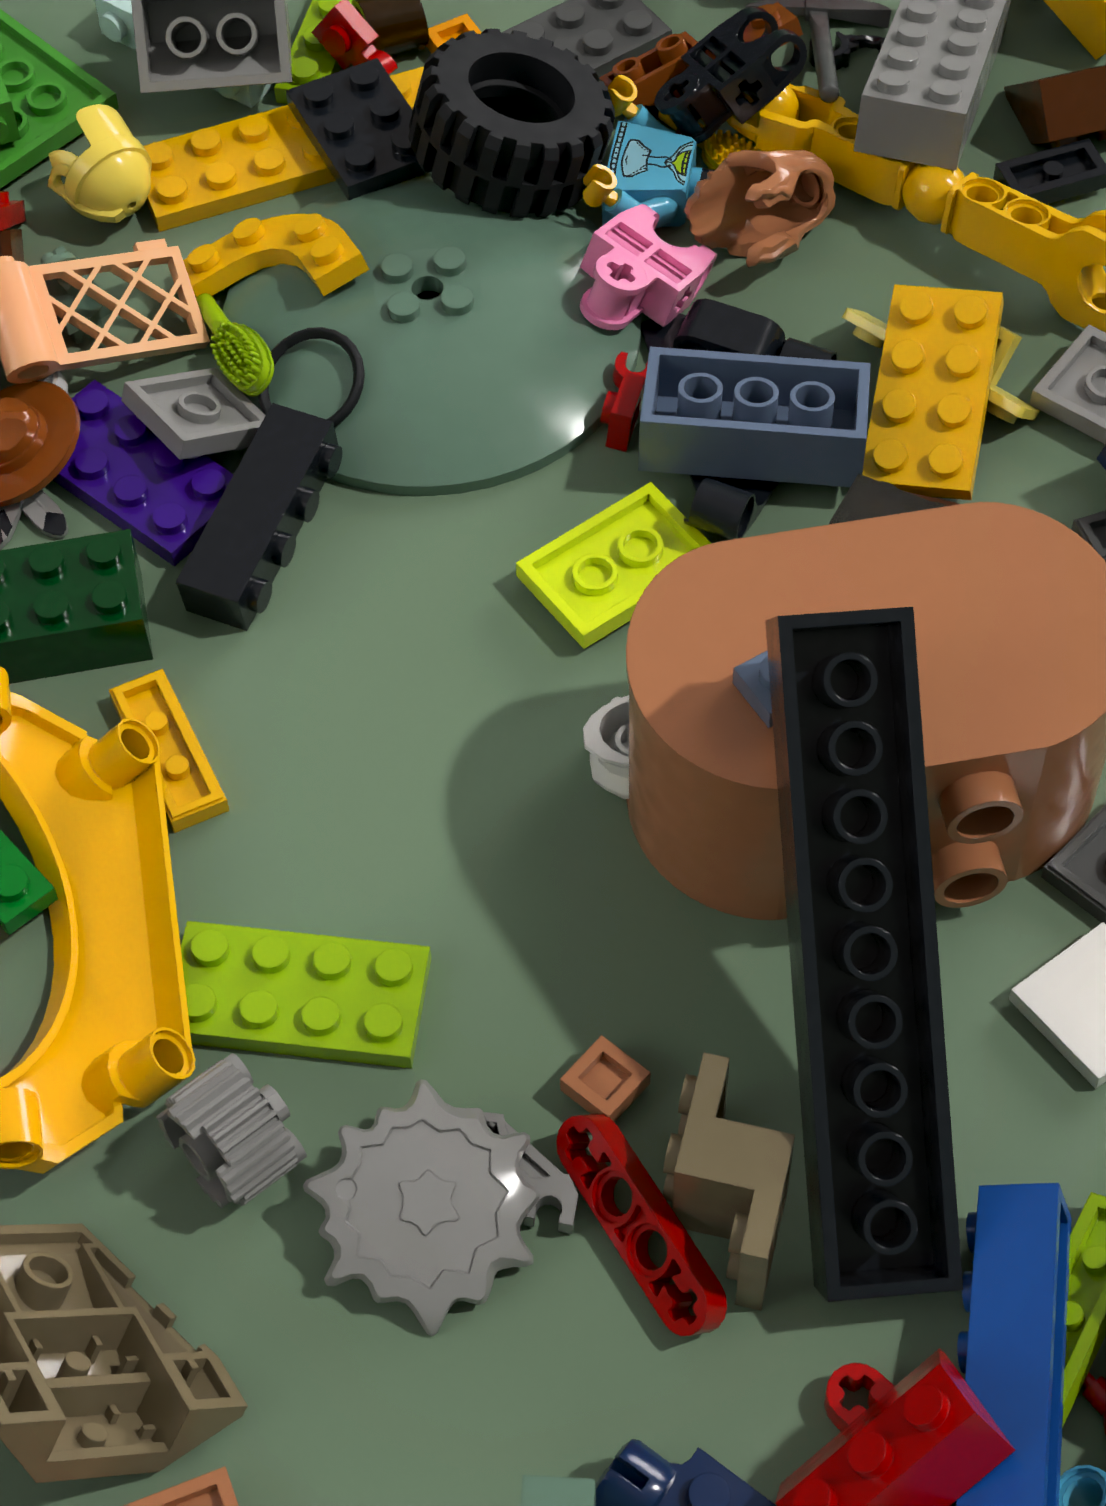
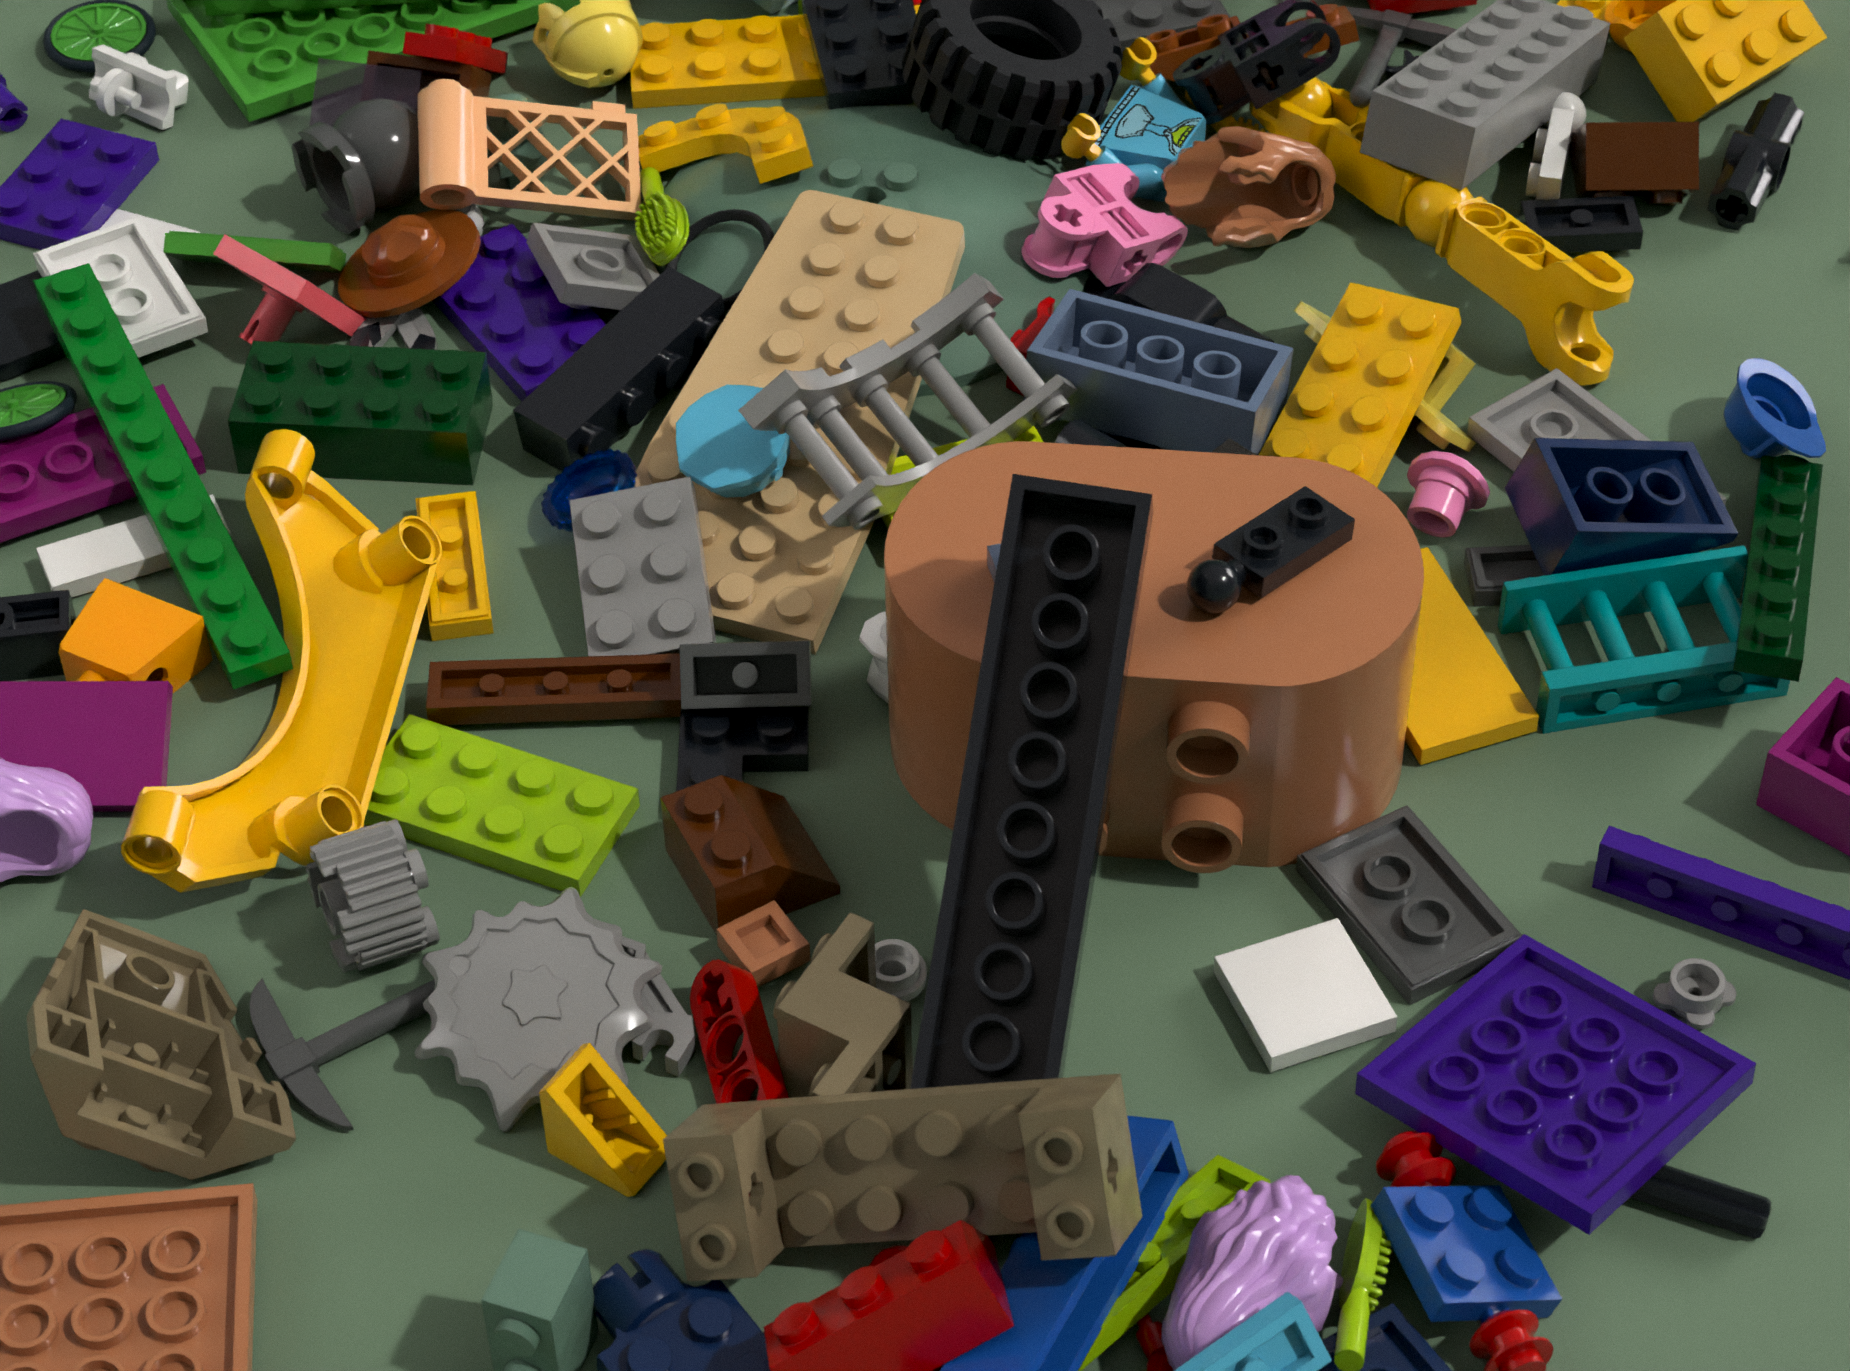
camera: 15 degrees right, 10 degrees down
(212, 1315) = (297, 1062): none -> dark grey piece
(273, 646) = (586, 477): none -> clear blue hat
(315, 860) = (554, 689): none -> reddish brown plate
(358, 727) = (642, 570): none -> light grey plate
(403, 574) = (722, 448): none -> medium azure hat
(434, 542) = (820, 293): none -> tan wing
(475, 525) = (812, 400): none -> light grey fence
(489, 879) = (740, 742): none -> black plate
(493, 807) = (745, 674): none -> dark grey brick
(532, 1315) = (600, 1124): none -> yellow slope
(552, 992) = (742, 850): none -> reddish brown slope
(748, 1071) = (903, 960): none -> white plate
(853, 1304) = (901, 1165): none -> dark tan plate
(988, 610) = (1269, 550): none -> black plate
(1004, 107) = (1553, 147): none -> white plate
(1038, 471) = (1443, 492): none -> bright pink piece

